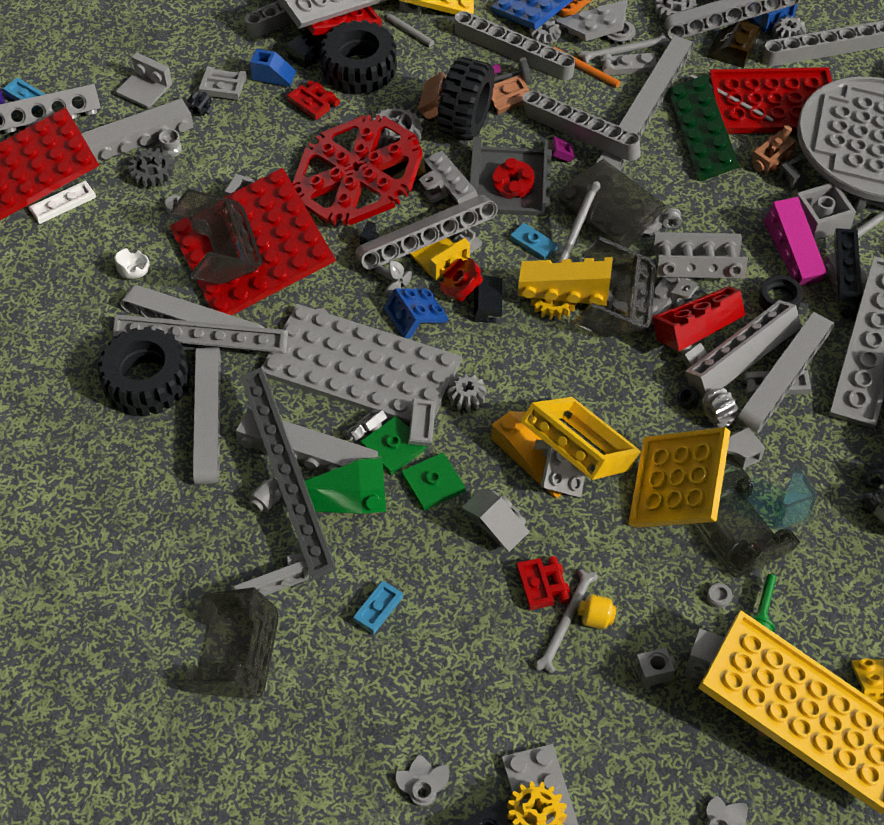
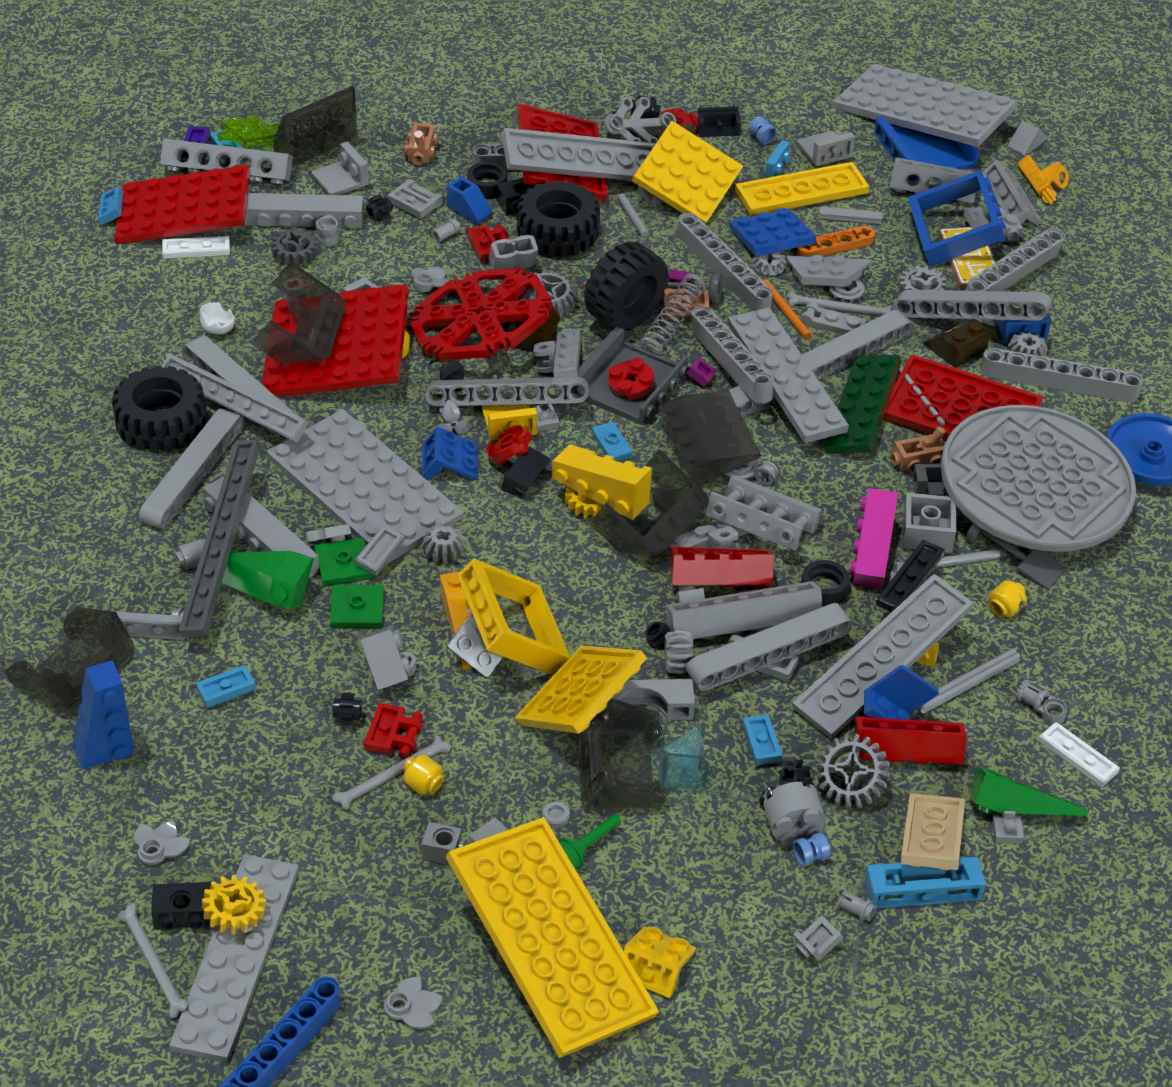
camera: 25 degrees right, 10 degrees down
(37, 74) = (247, 131): none -> clear neon green plate
(101, 50) = (318, 127): none -> clear smoke slope
(194, 30) = (421, 145): none -> nougat brick
(271, 98) = (446, 230): none -> light grey pin
(272, 32) = (487, 170): none -> black tyre
(284, 152) = (427, 279): none -> light grey plate
(312, 694) = (103, 720): none -> blue wedge
(343, 103) = (513, 253): none -> light grey brick
(495, 581) = (347, 709): none -> black gear
(510, 104) = (675, 310): none -> light grey piece
(591, 191) = (663, 432): light grey piece -> none
(656, 137) = (792, 379): none -> light grey plate
(828, 454) = (762, 740): none -> dark azure plate

